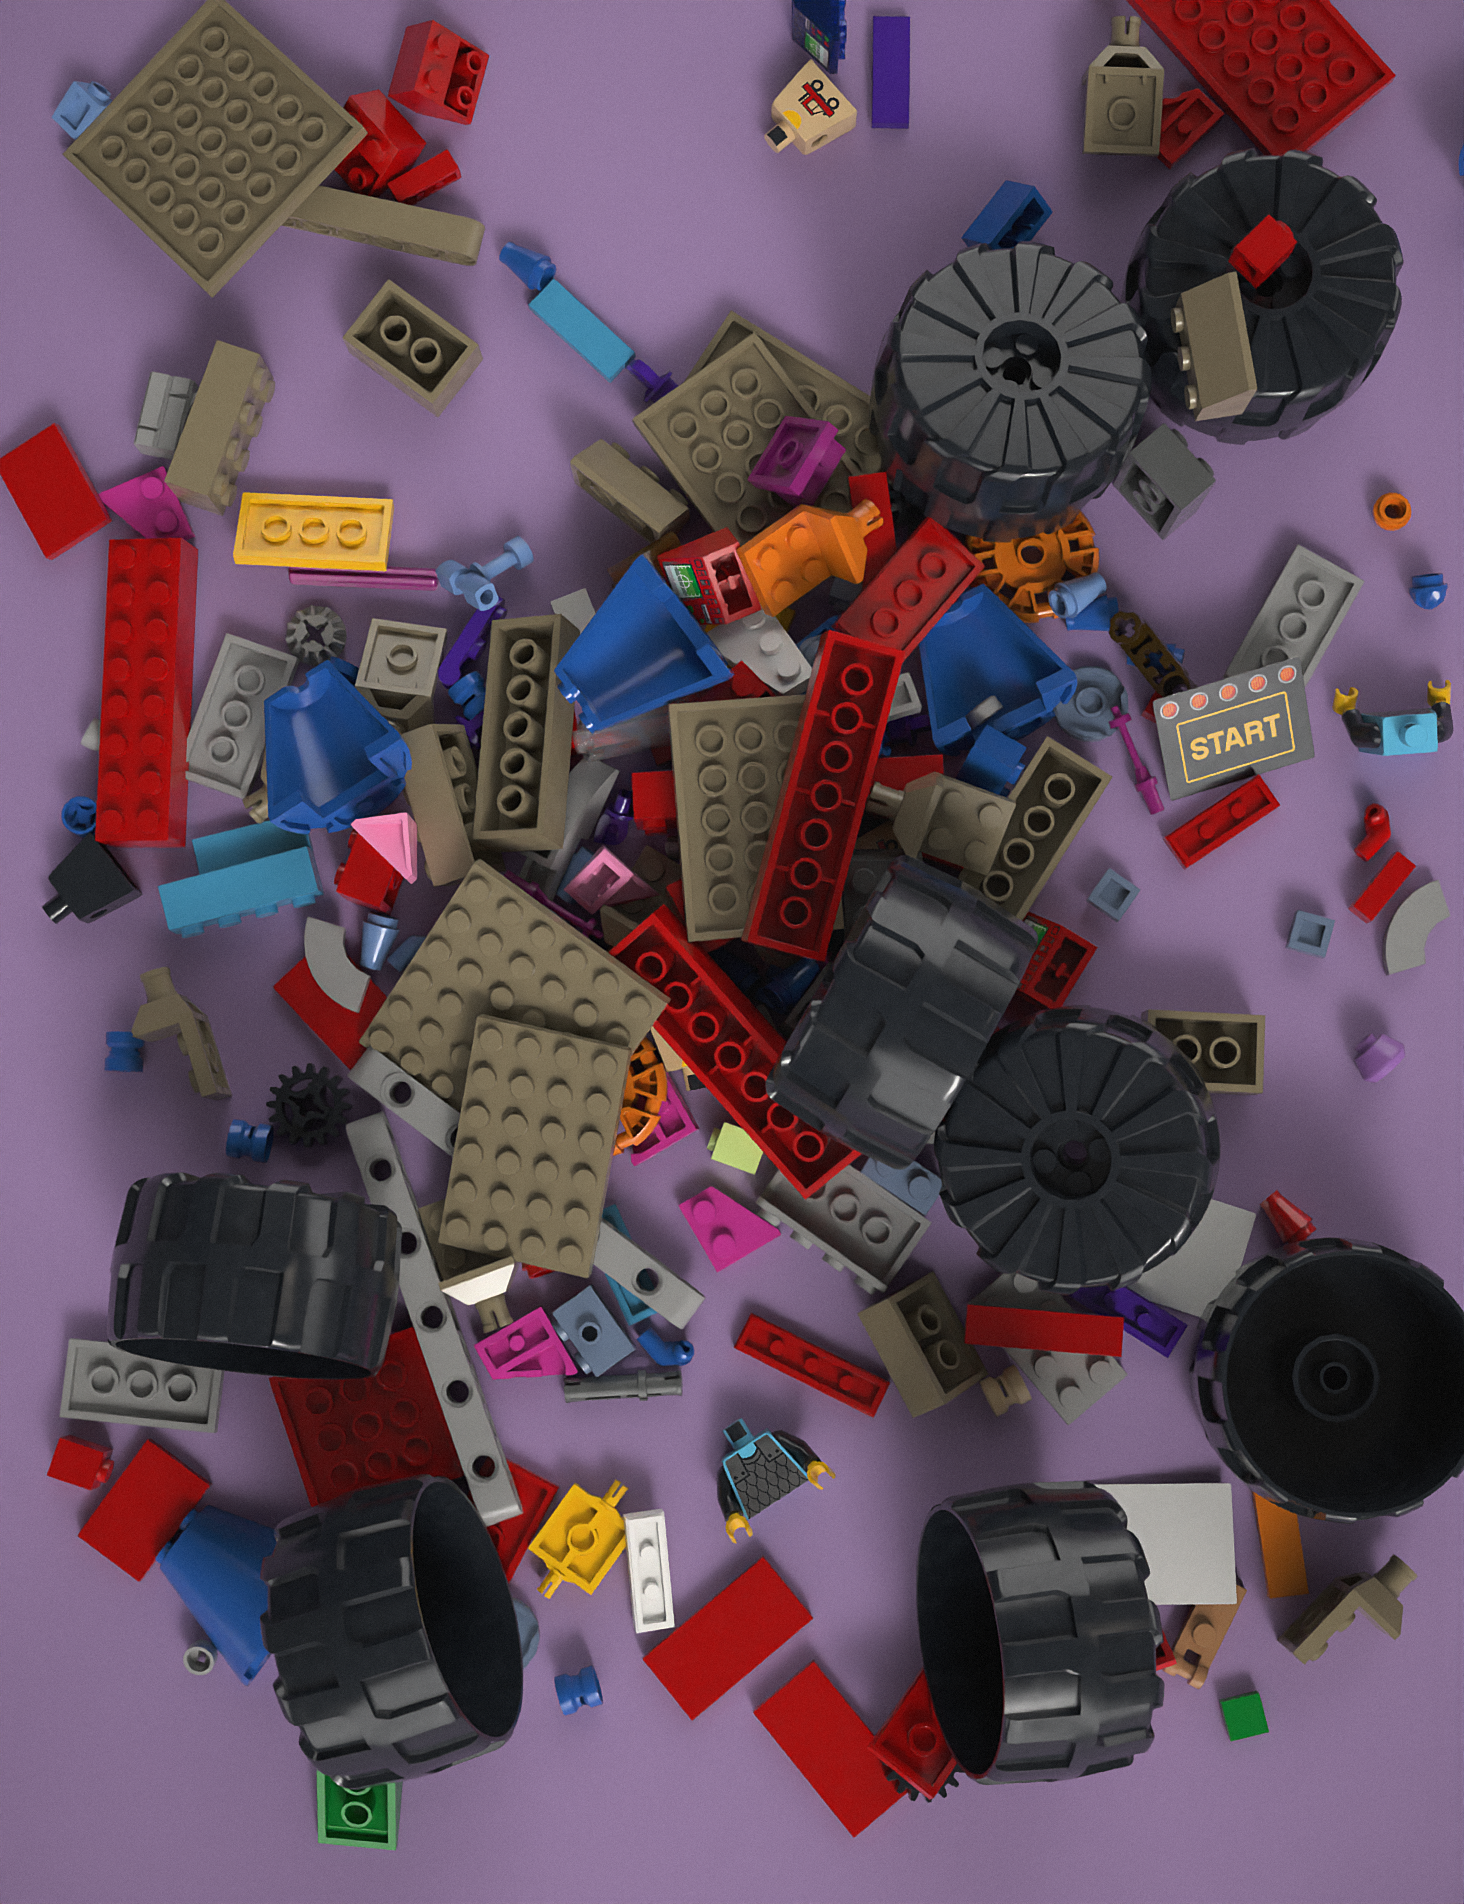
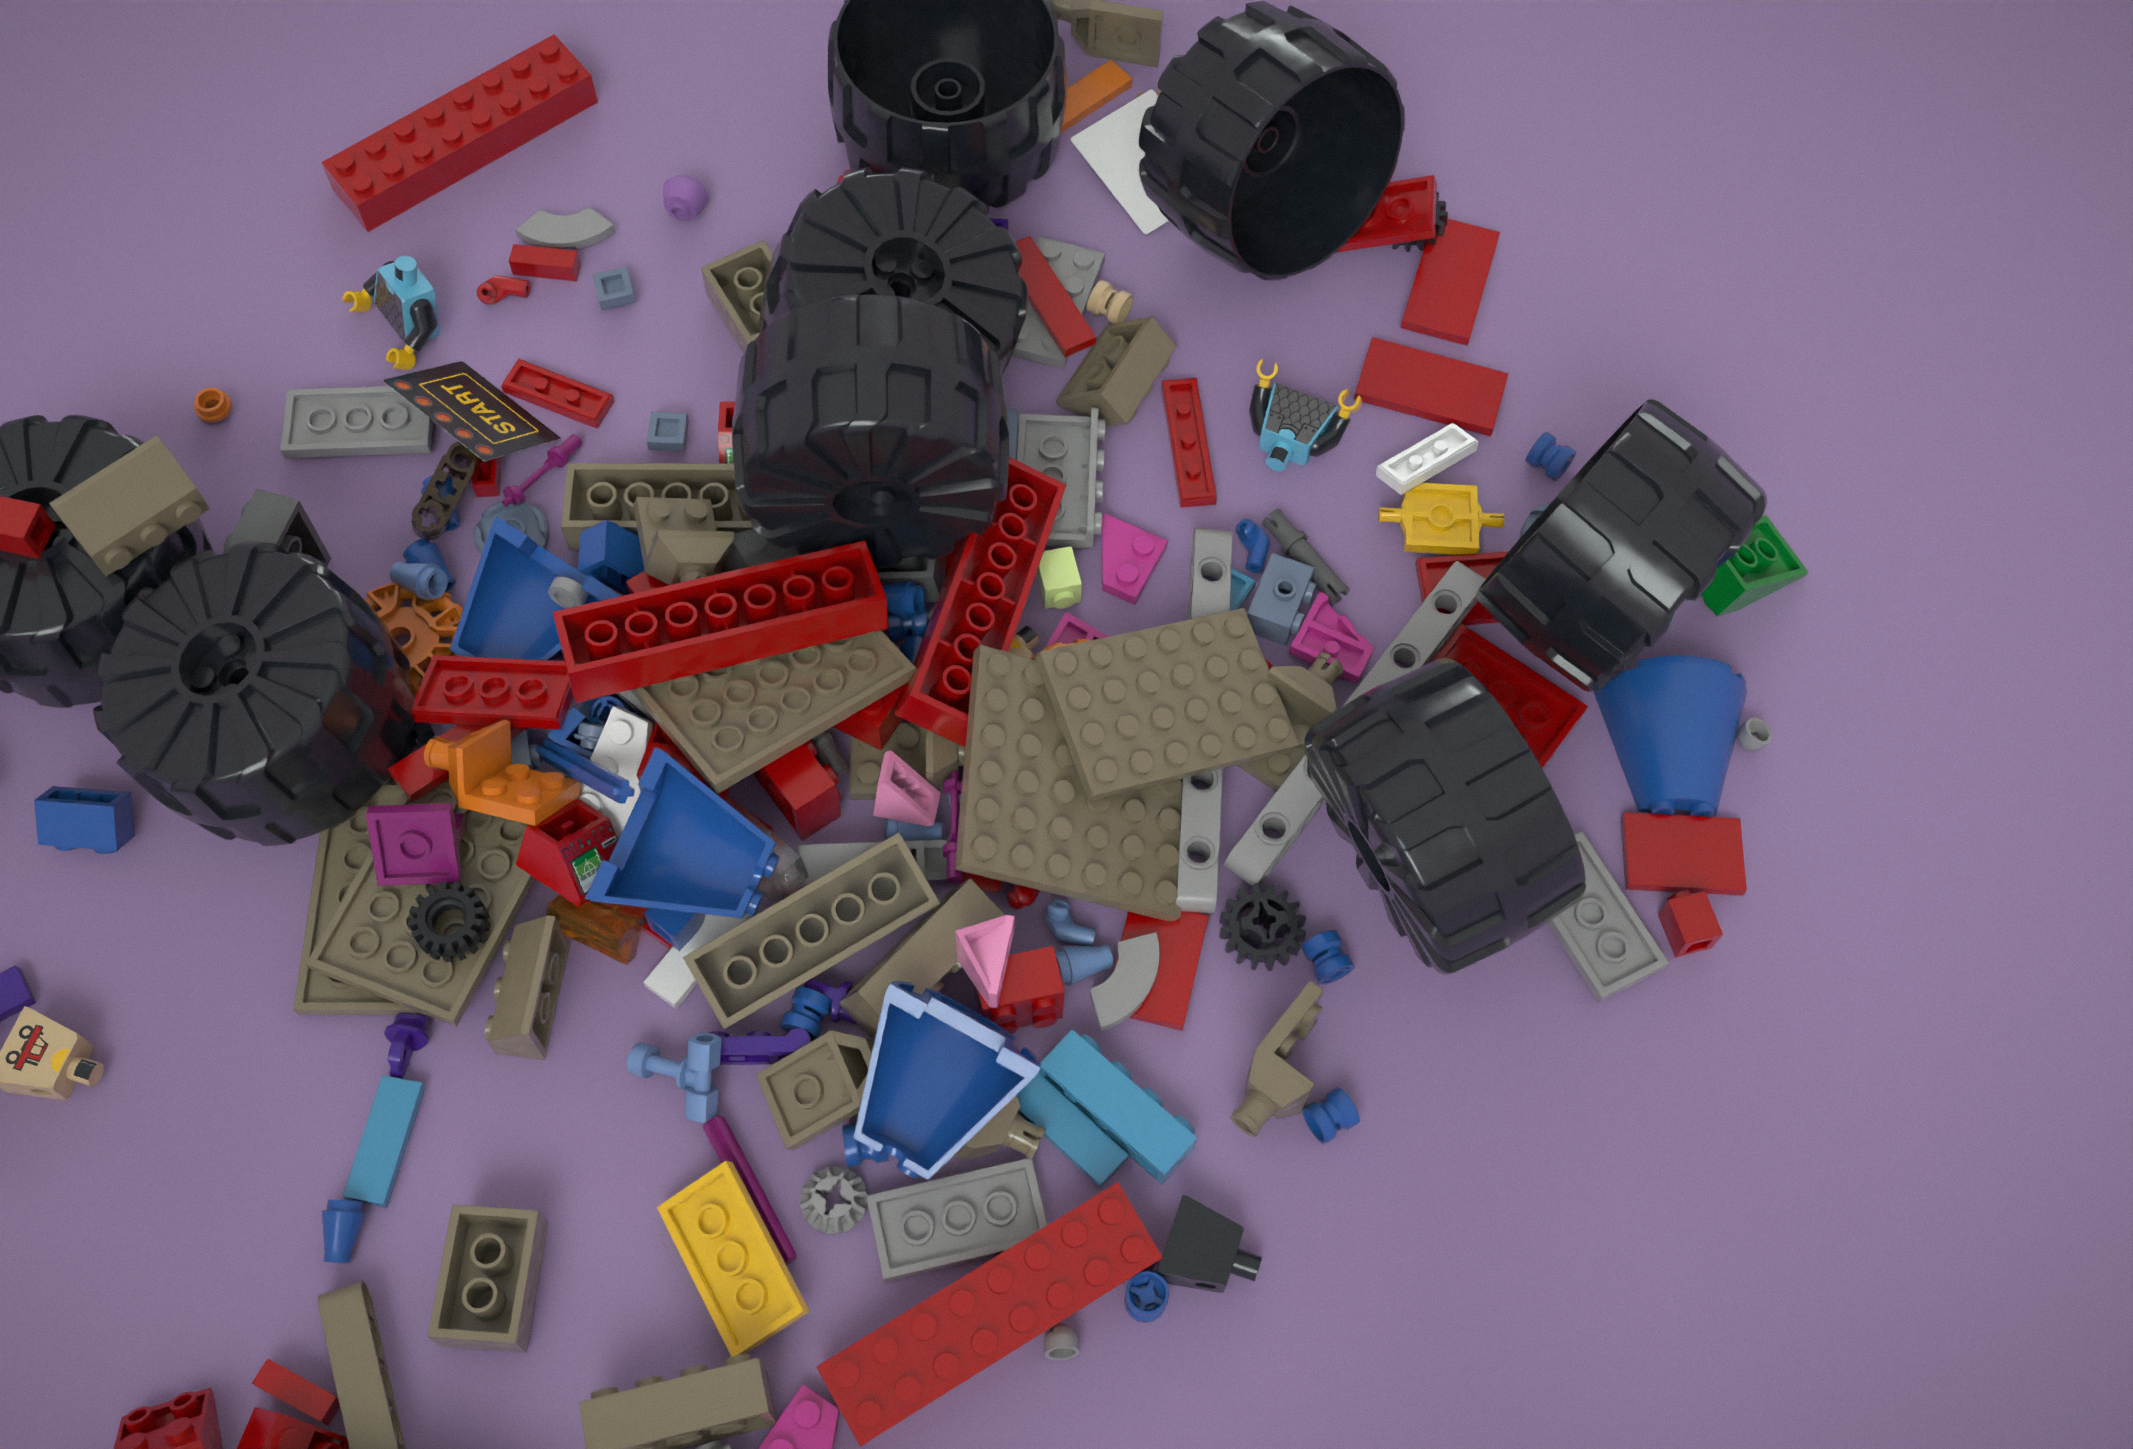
camera: 130 degrees left, 20 degrees down
(615, 819) = (841, 829): dark purple piece -> none
(713, 431) = (436, 903): none -> black tyre
(764, 621) = (585, 771): none -> blue axle
(1428, 590) = (269, 347): blue plate -> none

